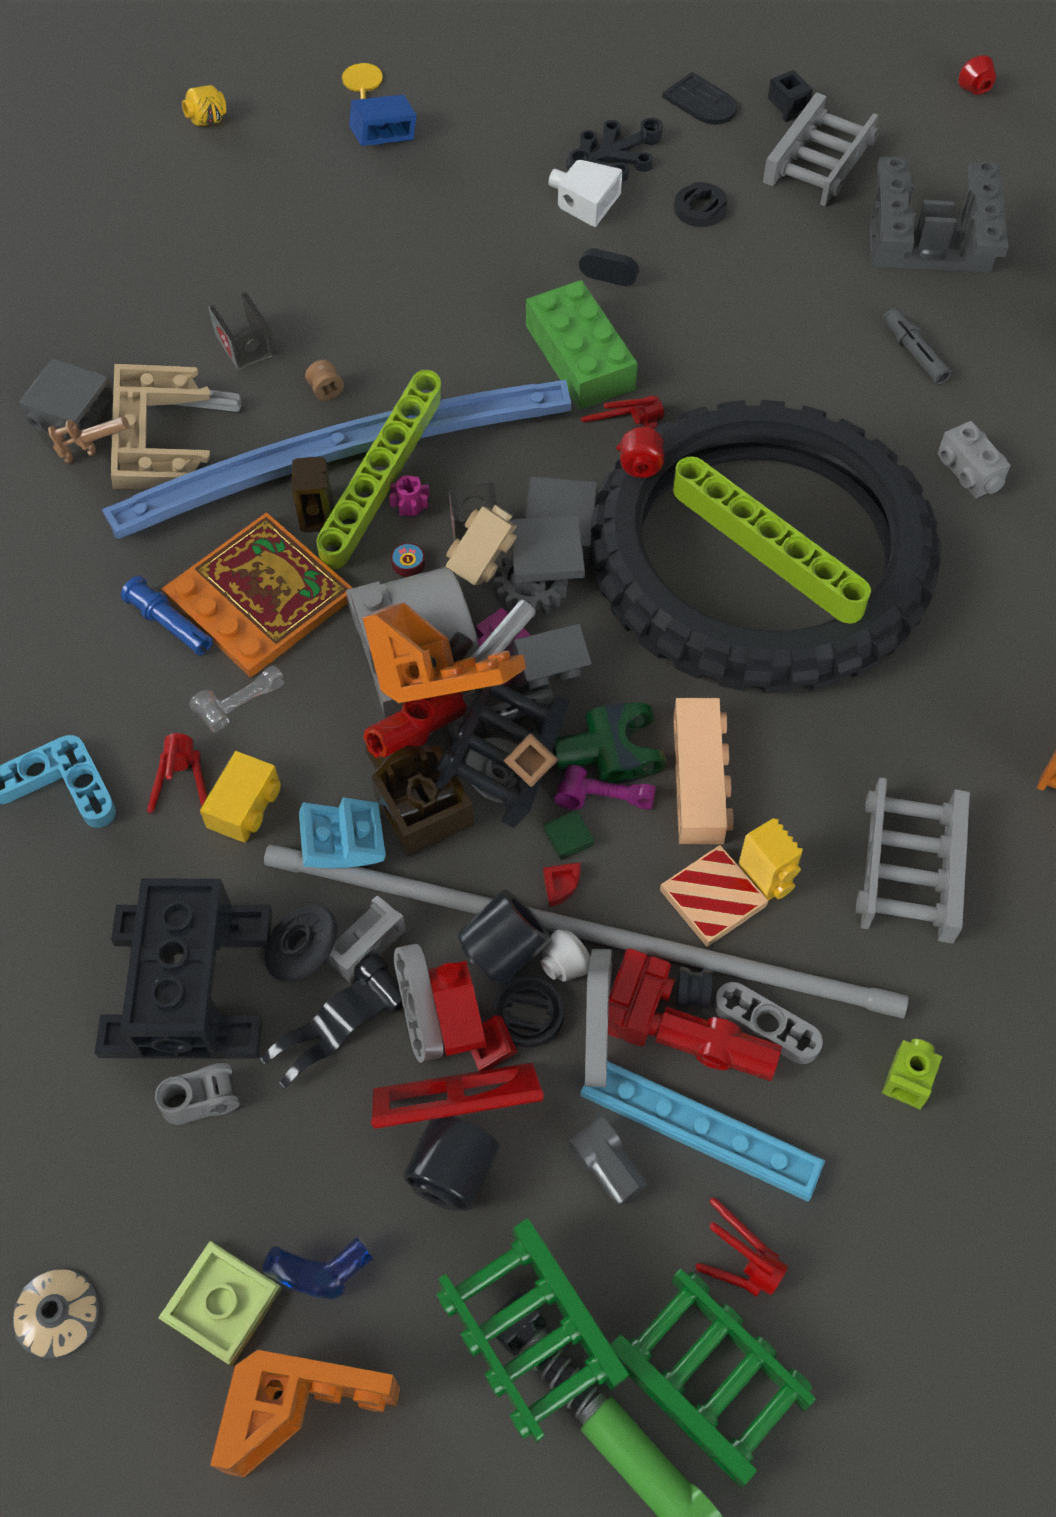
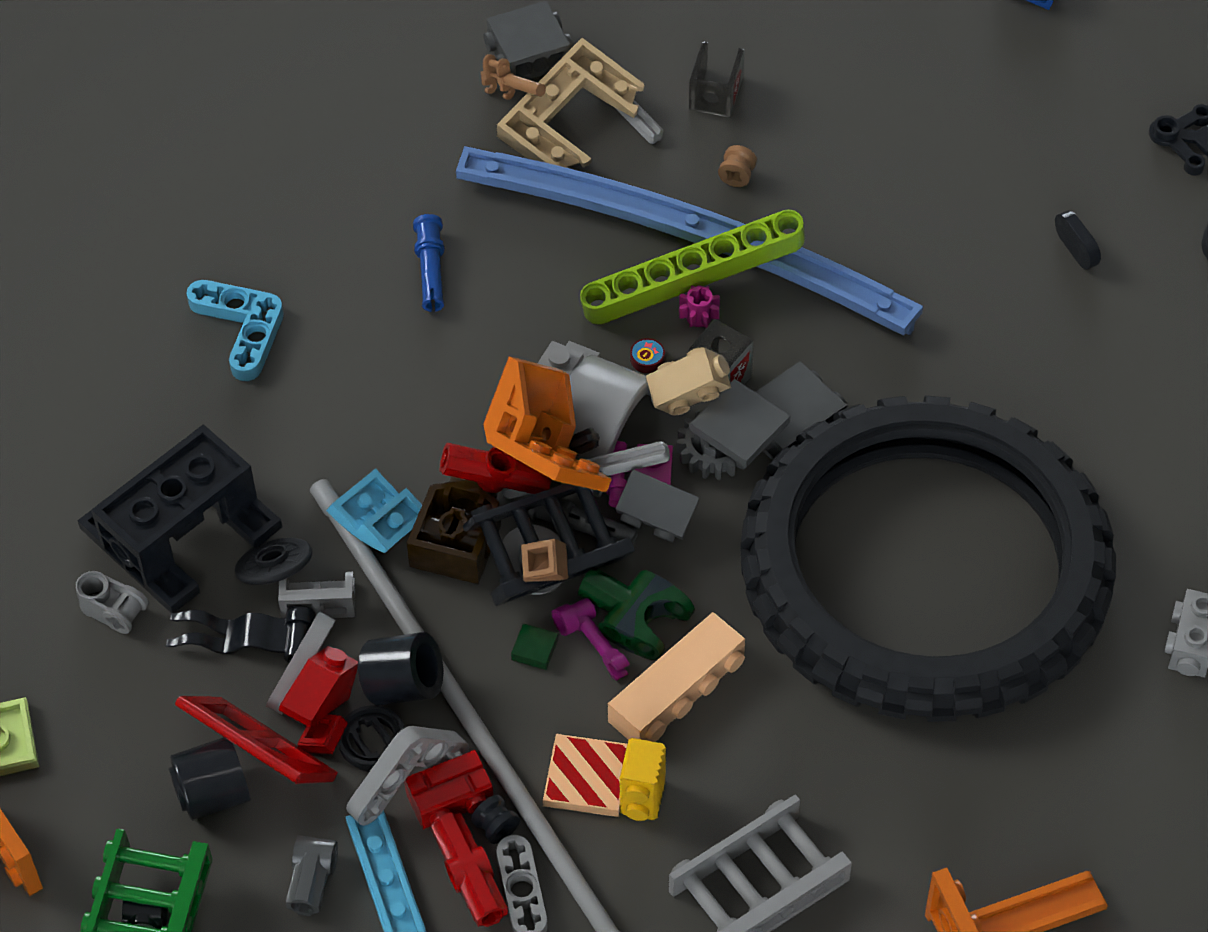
camera: 45 degrees right, 5 degrees down
(177, 756) = (331, 368): red plant -> none
(214, 711) = (389, 355): clear brick -> none
(241, 797) = (341, 431): yellow brick -> none
(258, 594) = (512, 295): plate -> none
(311, 492) = (620, 243): dark brown brick -> none
(317, 1278) = (62, 776): clear blue arm -> none
(561, 882) = (492, 674): red tile -> none
(565, 957) = (432, 714): white cone -> none
(581, 344) = (972, 287): bright green brick -> none
(587, 189) = (1140, 160): white torso -> none
(641, 450) = (886, 402): red head -> none
(643, 411) = (964, 380): red plant -> none
(771, 540) = (900, 559): lime beam -> none

